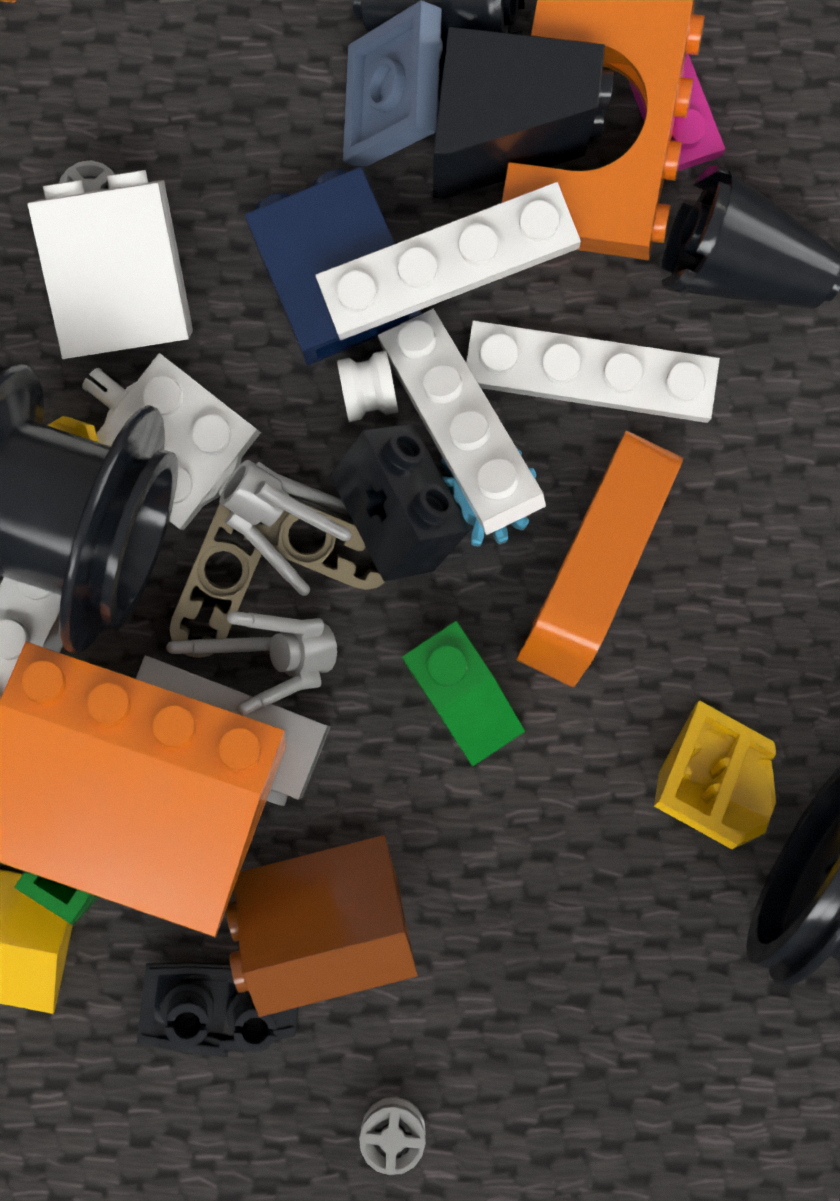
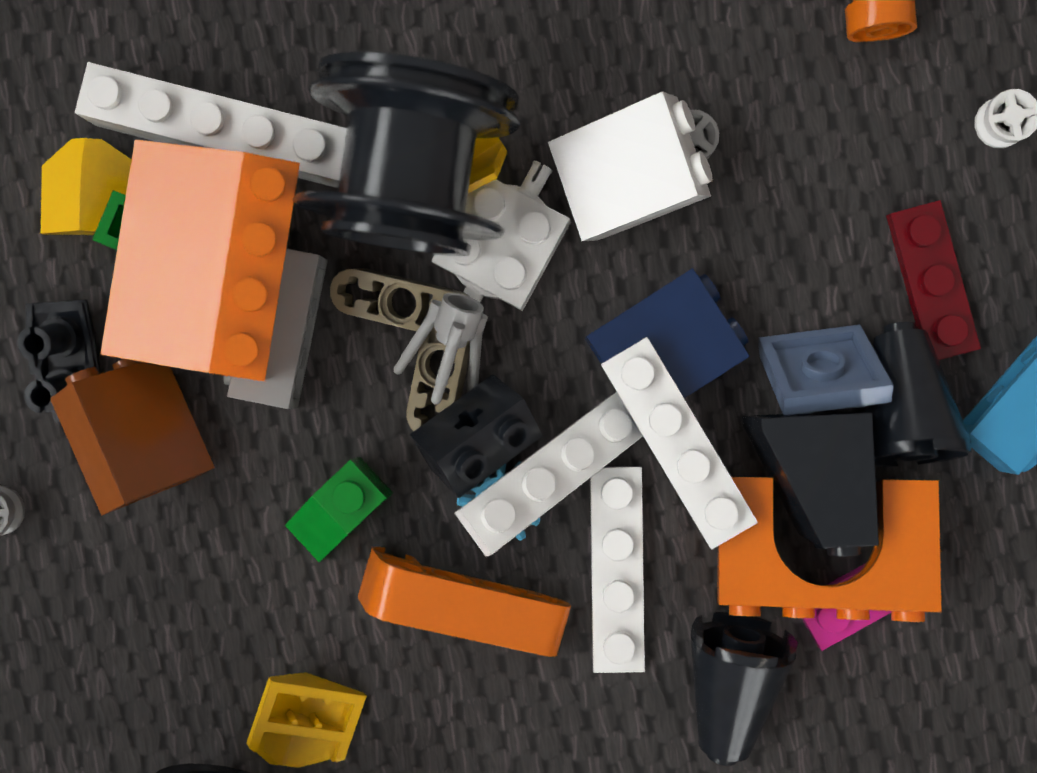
camera: 75 degrees right, 5 degrees up
(299, 650) = (347, 371): light grey plant -> none
(367, 386) = (572, 391): white wheel -> none

